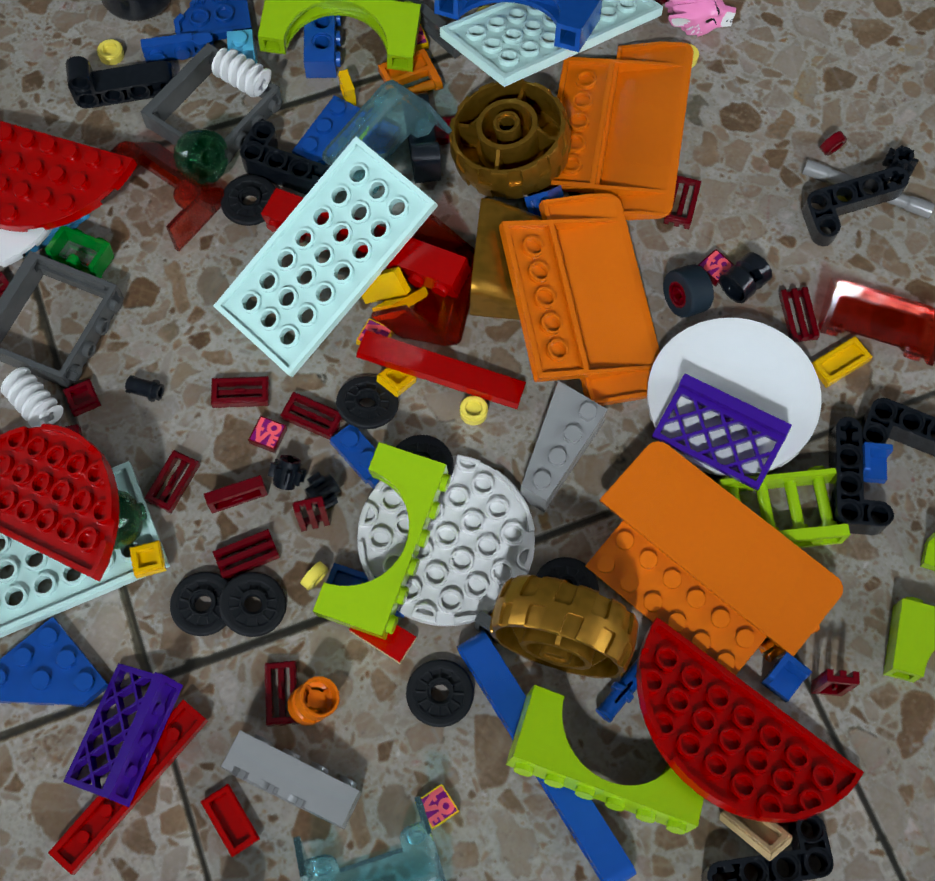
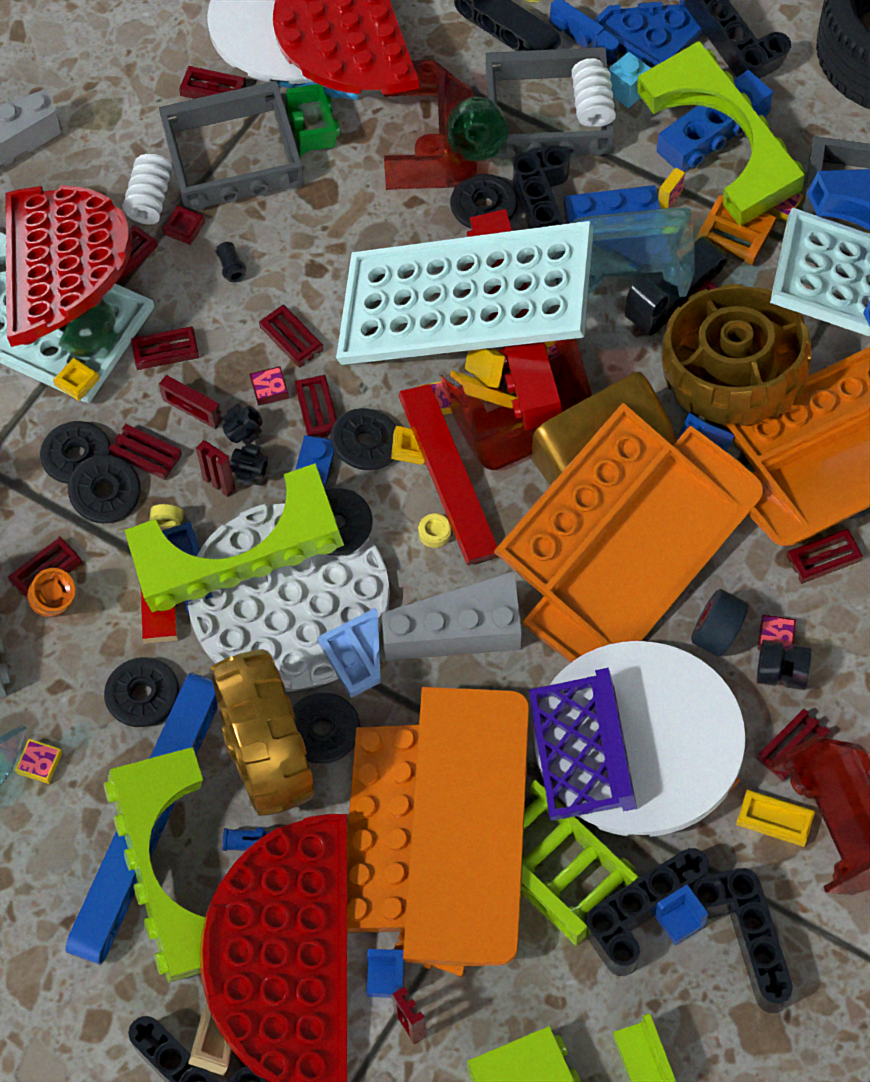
camera: 55 degrees right, 5 degrees down
(533, 526) = (354, 652): none -> light blue wing

